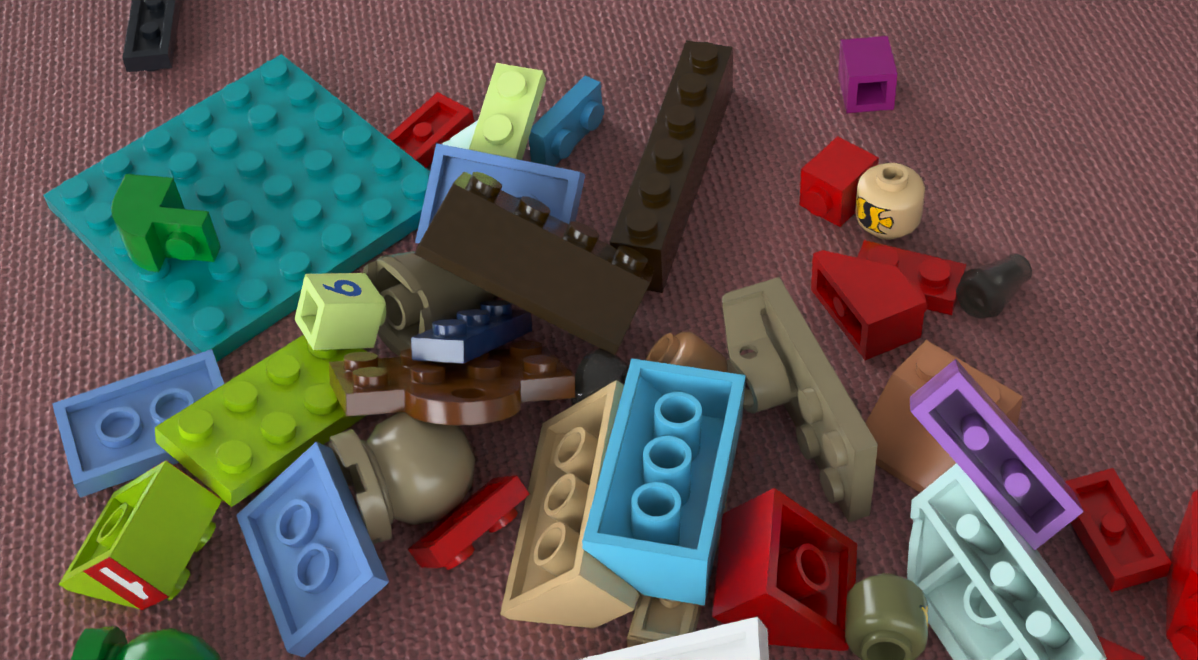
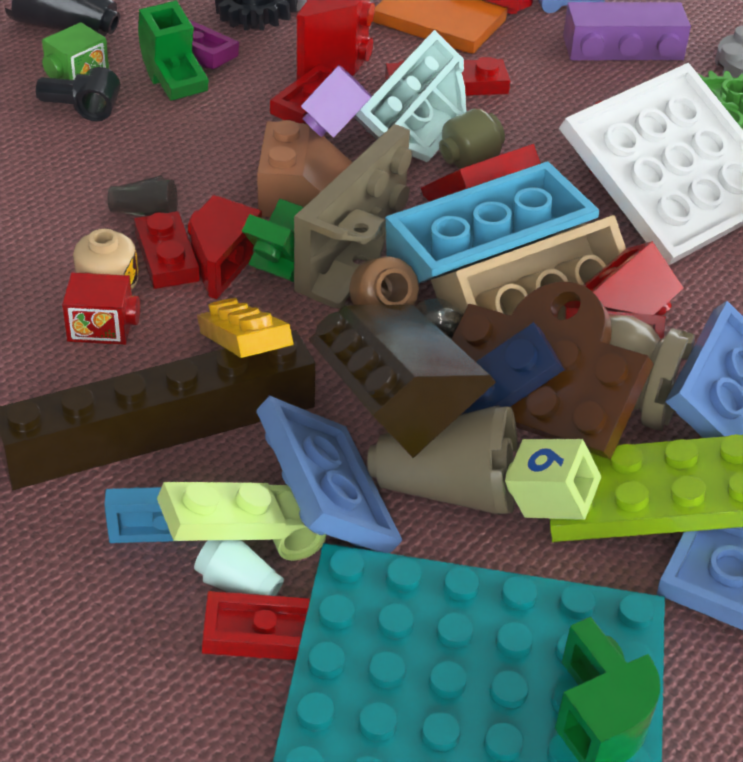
camera: 135 degrees left, 5 degrees down
(502, 557) = (635, 282): none -> slope
(687, 209) = (243, 328): none -> yellow plate
(840, 341) = (273, 240): none -> green brick

